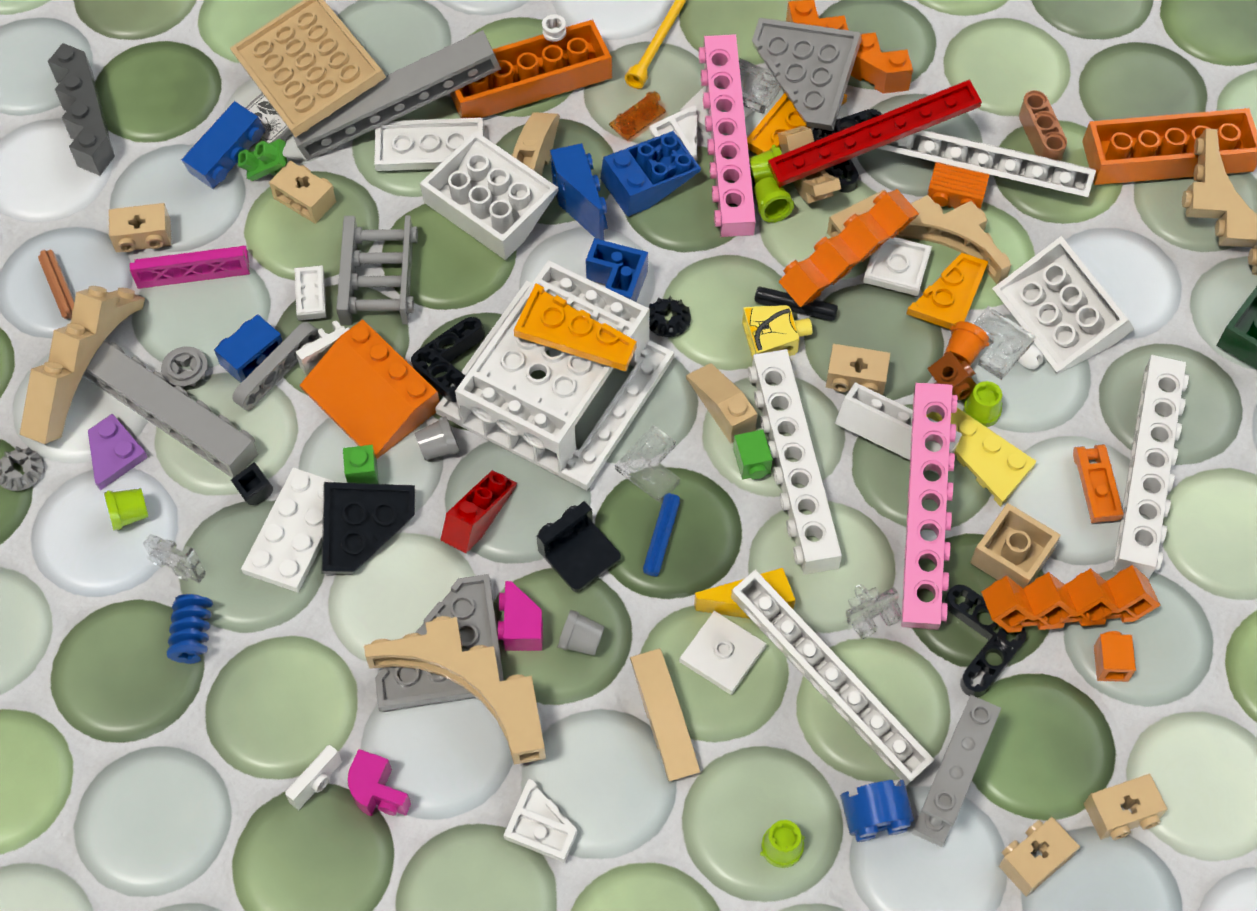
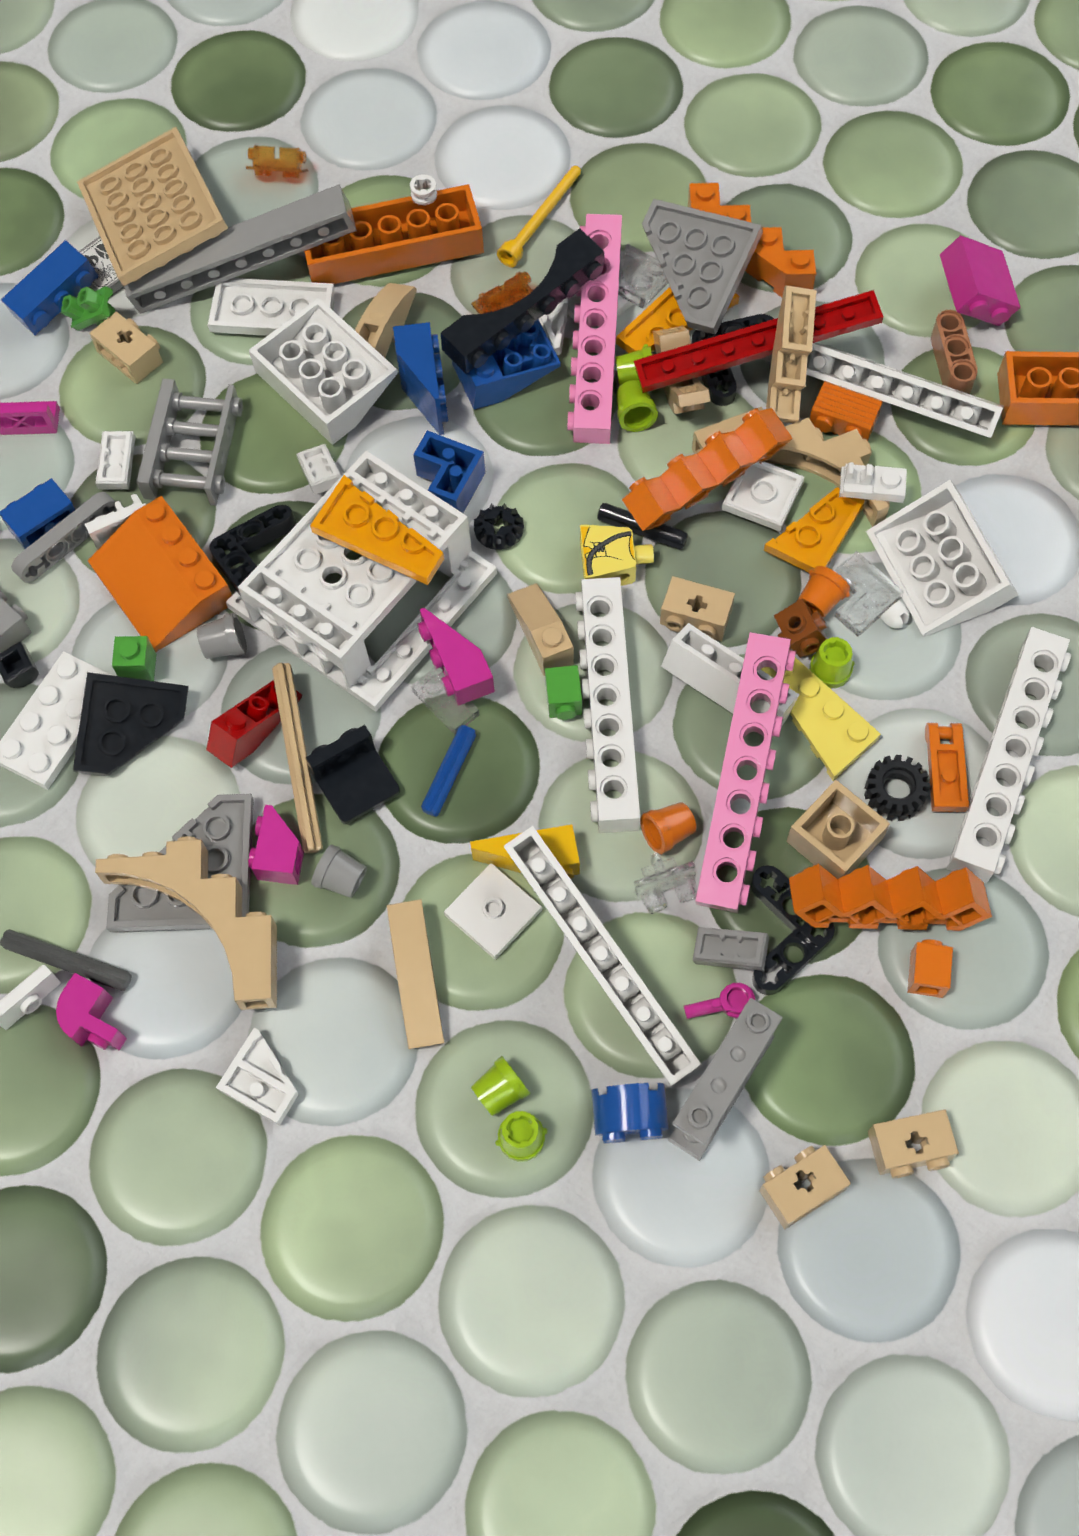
camera: 10 degrees right, 5 degrees up
(343, 740) = (66, 960): none -> dark grey axle
(421, 15) = (288, 161): none -> clear orange hinge
(499, 282) = (318, 468): none -> white plate
(525, 538) = (296, 755): none -> tan axle
(628, 151) = (478, 336): none -> black arch
(660, 438) = (461, 661): none -> dark pink slope
(758, 803) = (499, 1087): none -> lime piece
(865, 561) = (667, 826): none -> orange piece
(906, 139) = (790, 352): none -> tan slope
(939, 660) = (731, 948): none -> light grey plate
(949, 705) = (731, 1002): none -> dark pink plate
(994, 245) = (873, 482): none -> white plate
(1055, 63) = (979, 281): none -> dark pink brick
(1063, 491) = (897, 769): none -> black tyre

